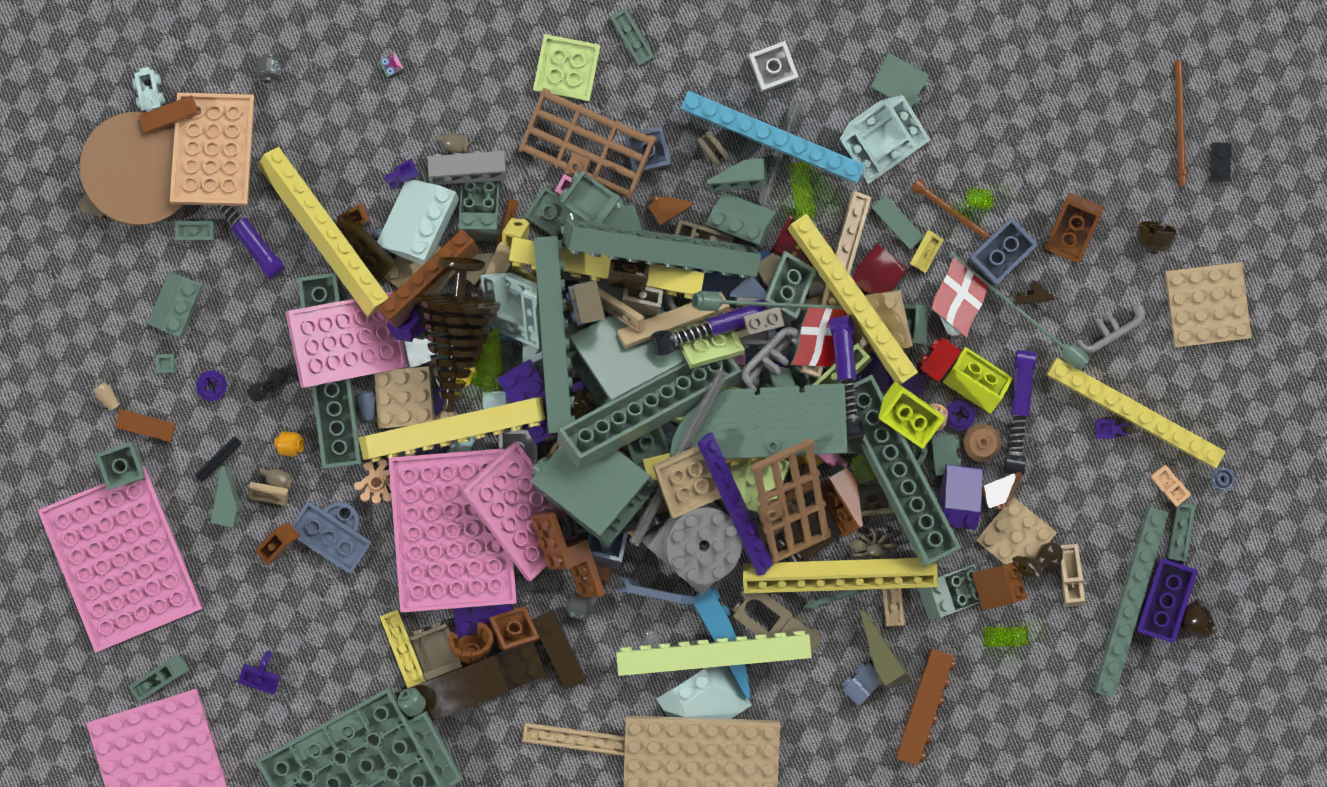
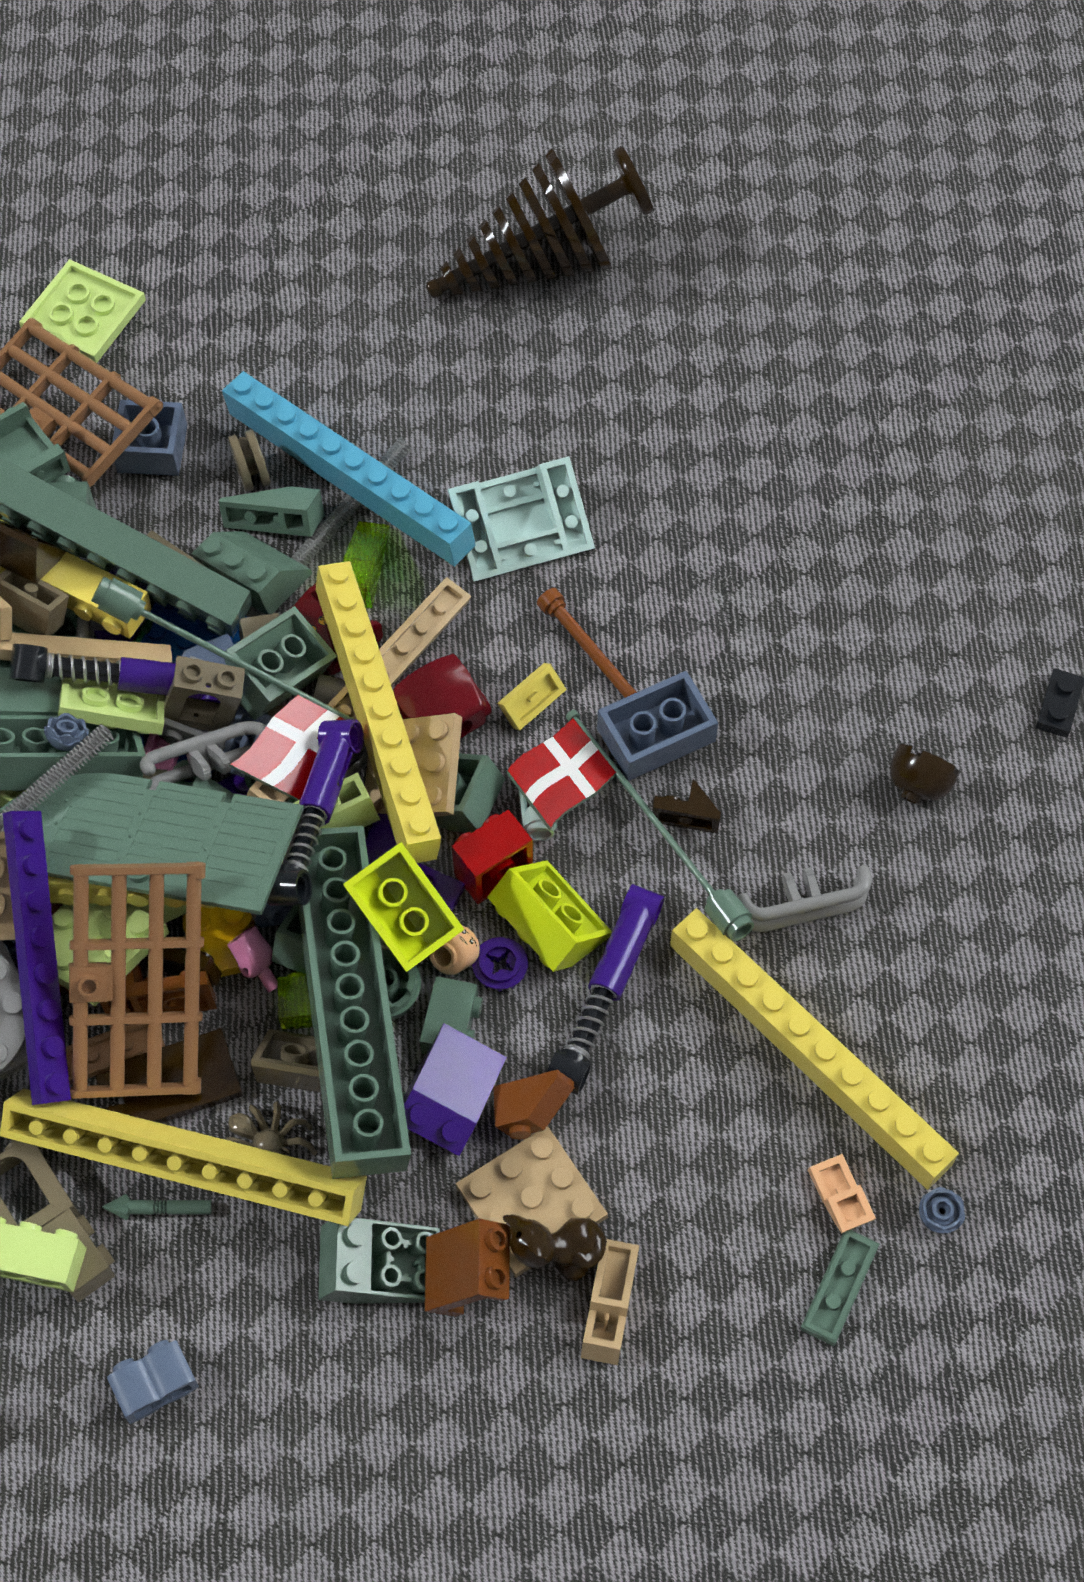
camera: 15 degrees right, 25 degrees down
(632, 37) = (196, 302): sand green tile -> none
(667, 208) = (147, 516): dark orange slope -> none
(700, 371) = (65, 731): none -> sand blue plate
(773, 66) = (386, 381): white brick -> none
(842, 501) = (235, 1025): dark orange slope -> none
(887, 665) = (203, 1347): olive wedge -> none
(893, 607) = (266, 1252): tan tile -> none
(897, 222) = (499, 644): sand green tile -> none
(900, 78) = (571, 435): sand green panel -> none
(924, 707) = (249, 1465): dark orange brick -> none
(979, 199) = (641, 639): clear neon green slope -> none
(981, 442) = (522, 1019): medium nougat cone -> none
(1006, 636) = (452, 1375): clear neon green slope -> none
(1074, 227) = (787, 727): dark orange slope -> none
(1107, 429) = (752, 1061): dark purple plate -> none
(1130, 601) = (703, 1388): sand green brick -> none
(1166, 600) = (775, 1399): dark purple brick -> none
(1182, 172) = (992, 698): dark orange bar -> none
(1197, 620) = (827, 1459): dark brown cylinder -> none
(1208, 304) = (987, 913): tan plate -> none

